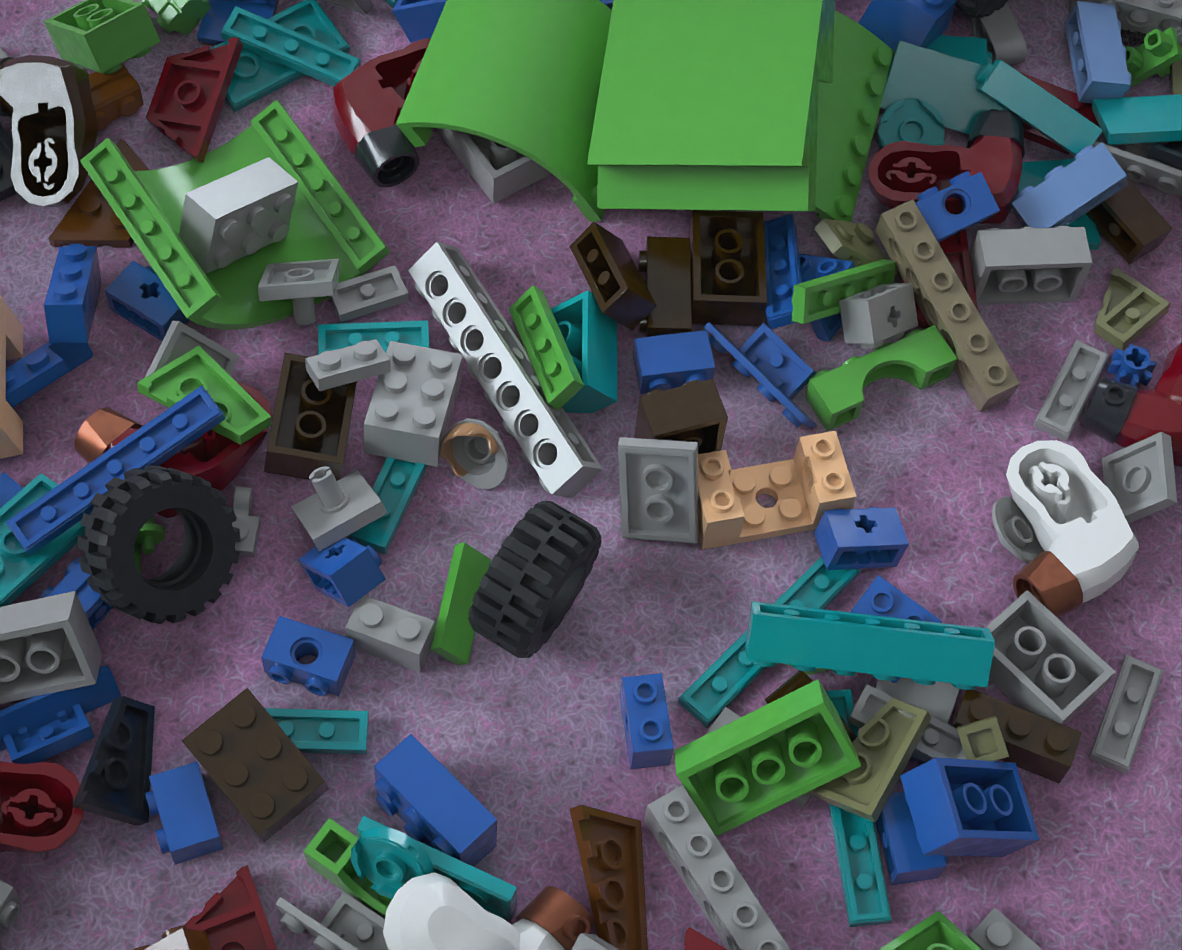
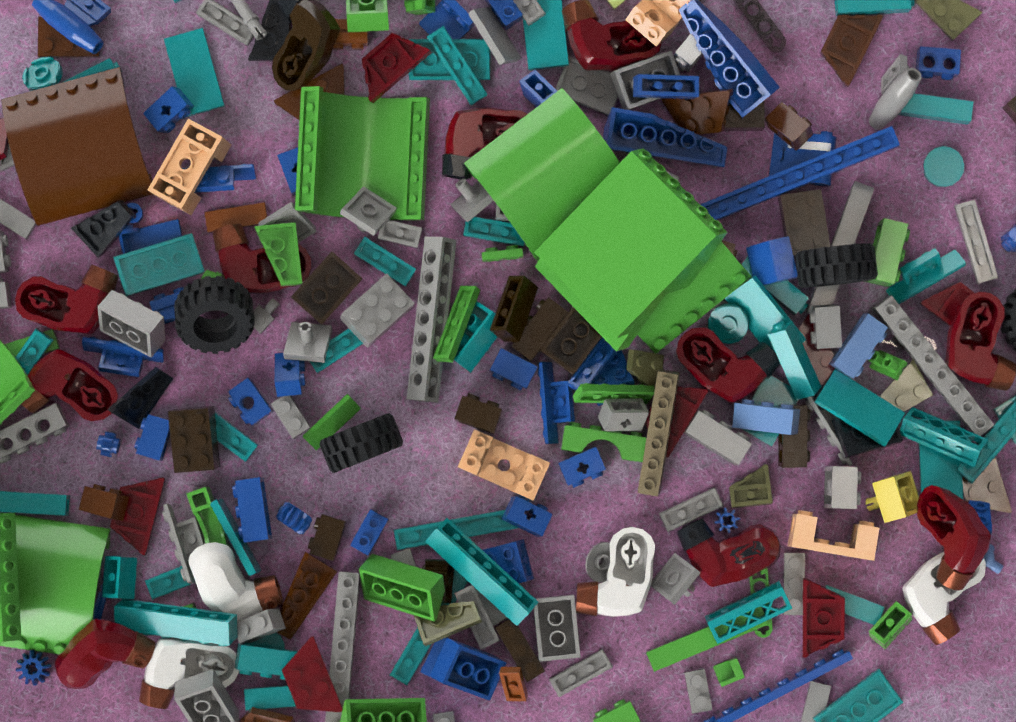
camera: 45 degrees right, 25 degrees up
(73, 294) = (260, 149): blue brick -> none
(110, 875) = (108, 444): none -> blue gear
(120, 397) = (245, 215): none -> dark orange tile
(145, 447) = (219, 264): blue tile -> none
(238, 214) = (359, 161): light grey brick -> none
(347, 364) = (354, 278): light grey plate -> none
(389, 859) = (215, 525): teal tile -> none
(441, 180) = (472, 199): none -> light grey tile
(475, 453) = (388, 353): light grey piece -> none
(502, 212) = (492, 231): none -> teal plate
(510, 778) = (294, 518): none -> blue gear
(538, 232) = (493, 254): none -> bright green plate
(584, 771) = (327, 537): none -> dark brown brick
(659, 489) = (448, 436): light grey tile -> none
(883, 408) = (591, 458): none -> blue brick
(974, 197) = (688, 394): blue brick -> none
(983, 740) = (496, 646): olive plate -> none
(1039, 50) = (826, 326): none -> light grey brick
(1051, 789) = (513, 683): none -> dark orange plate

